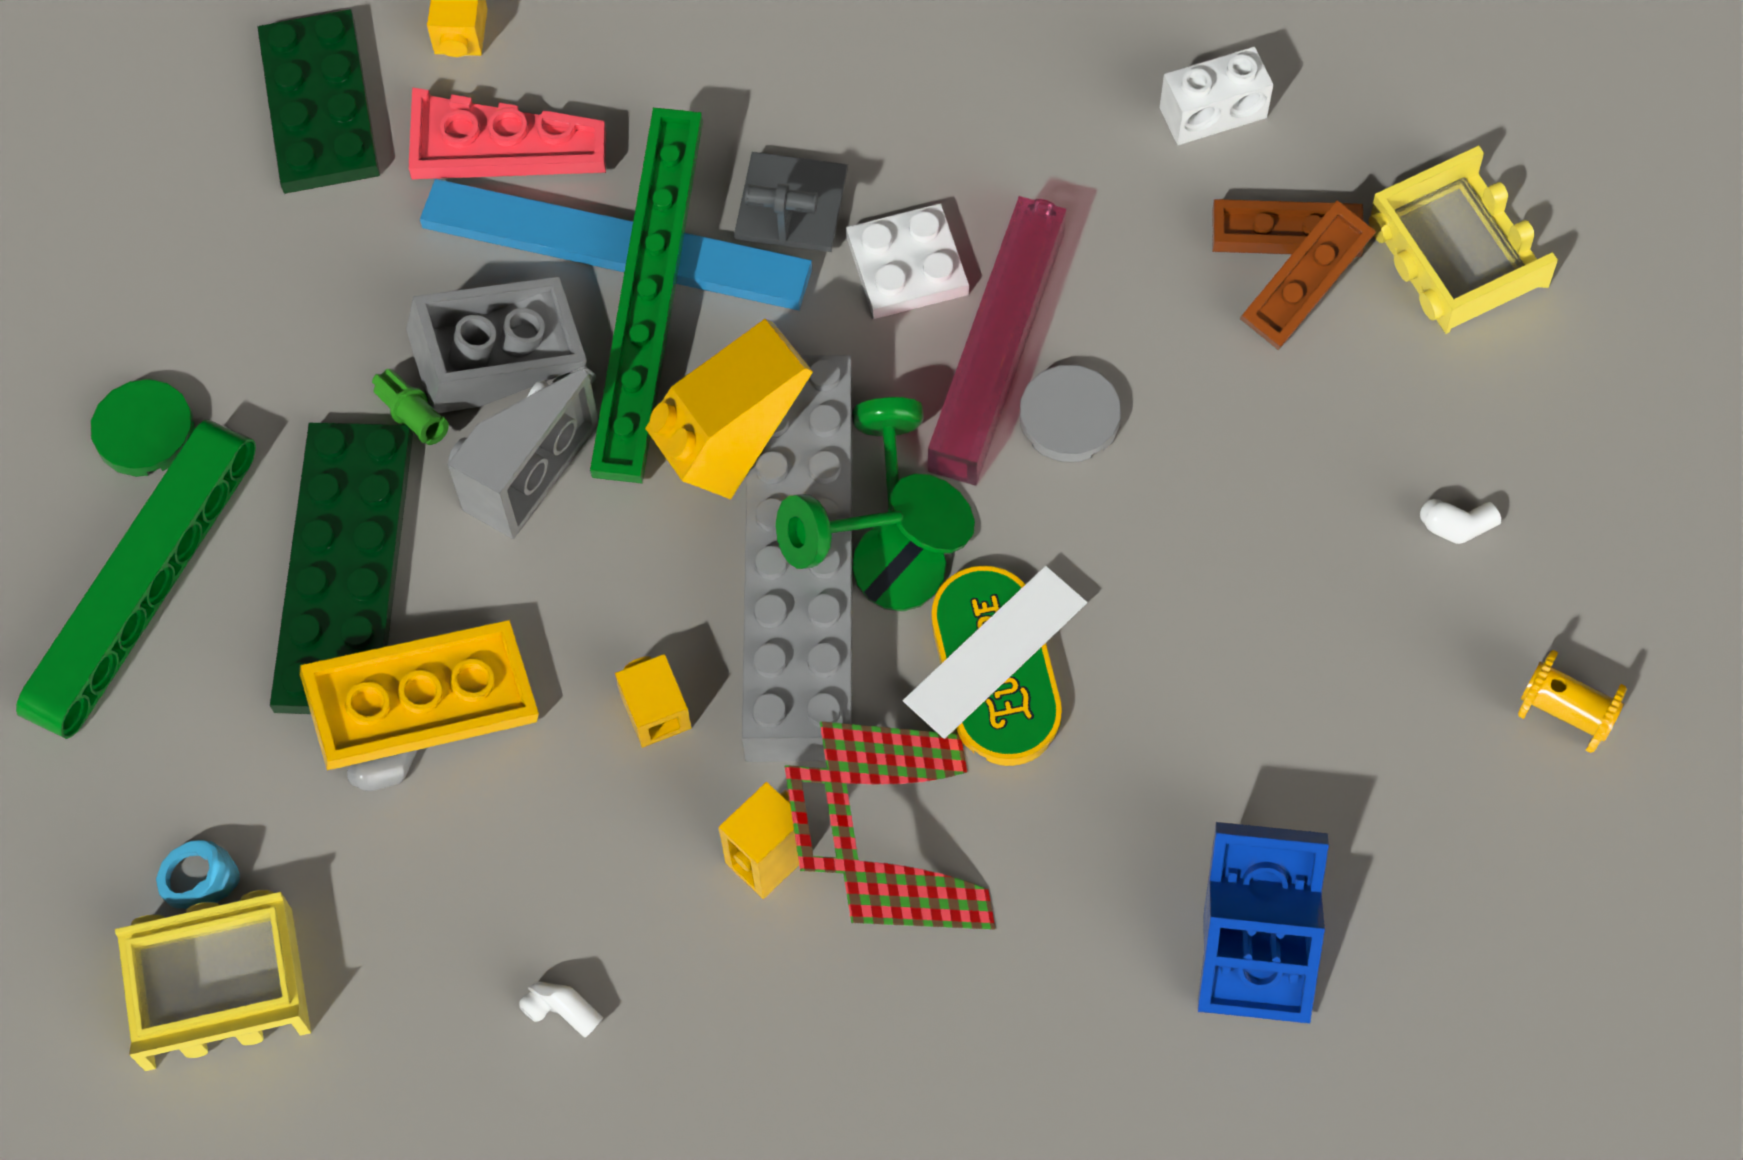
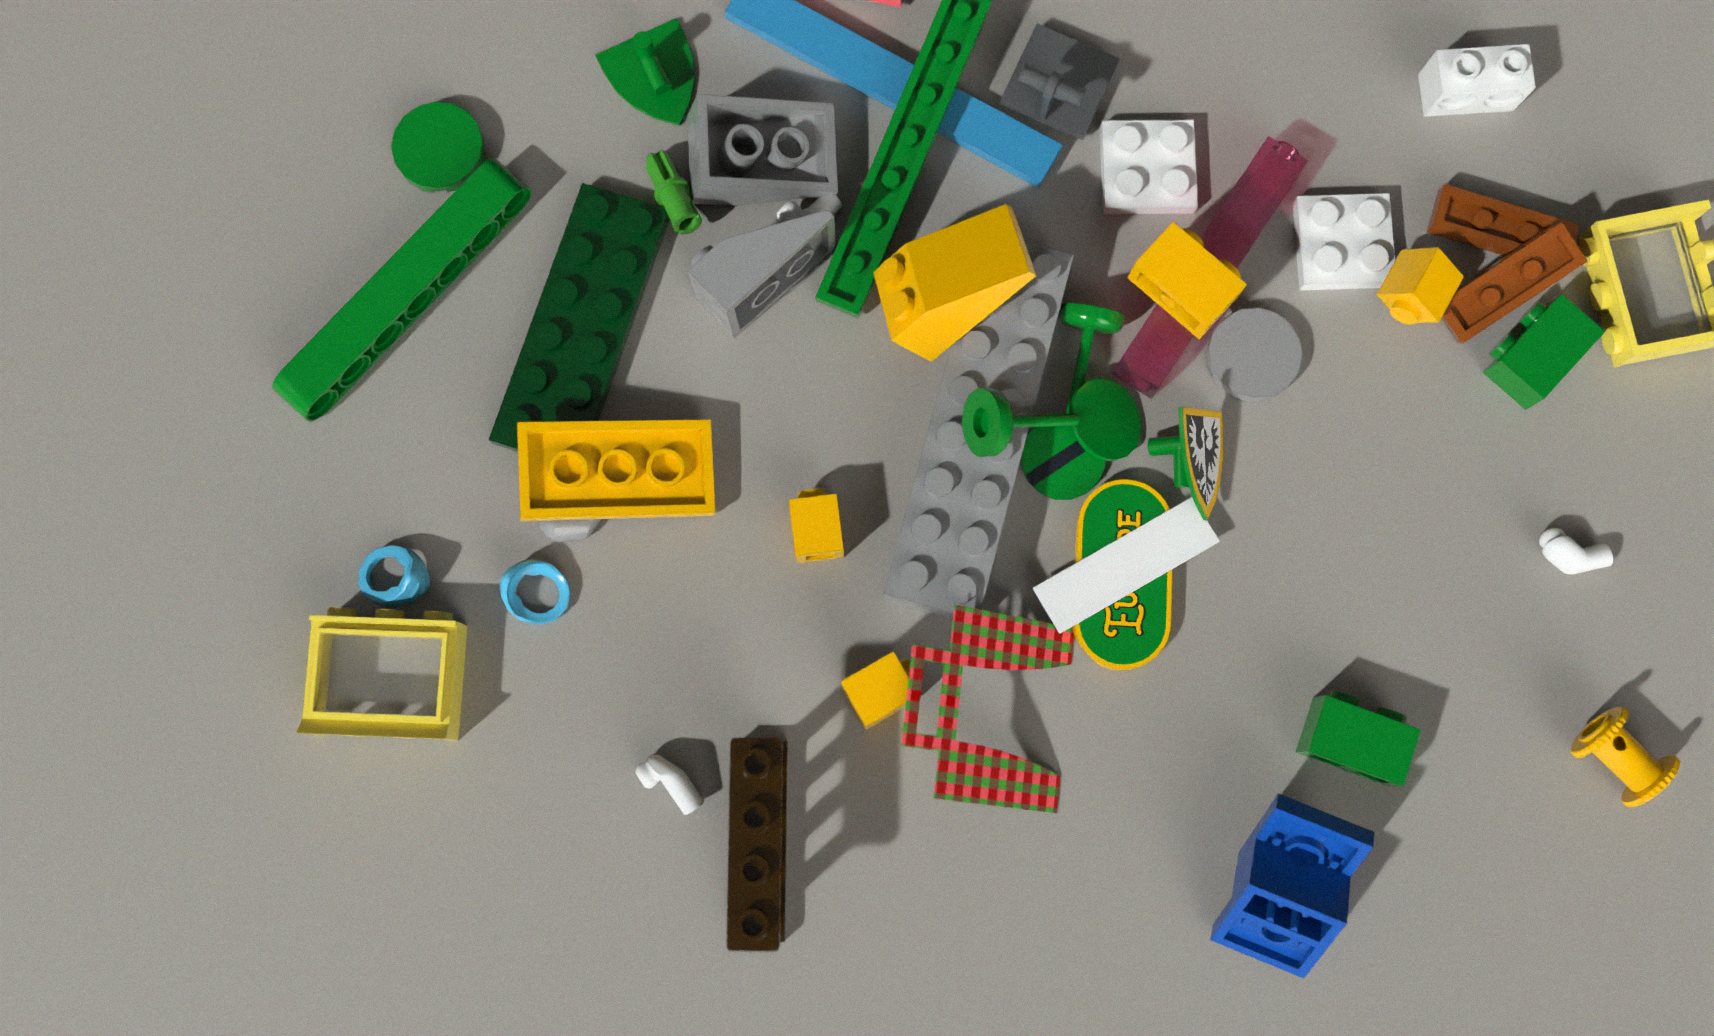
camera: 15 degrees right, 15 degrees up
(349, 826) = (513, 603): none -> medium azure piece
(357, 298) = (653, 72): none -> green shield
(673, 1027) = (757, 844): none -> dark brown fence
(973, 347) = (1187, 279): none -> yellow brick
(1036, 520) = (1195, 455): none -> shield
(1131, 282) = (1343, 240): none -> white plate
(1218, 300) = (1420, 285): none -> yellow brick
(1291, 760) = (1359, 740): none -> green brick
(1363, 333) = (1543, 351): none -> green brick

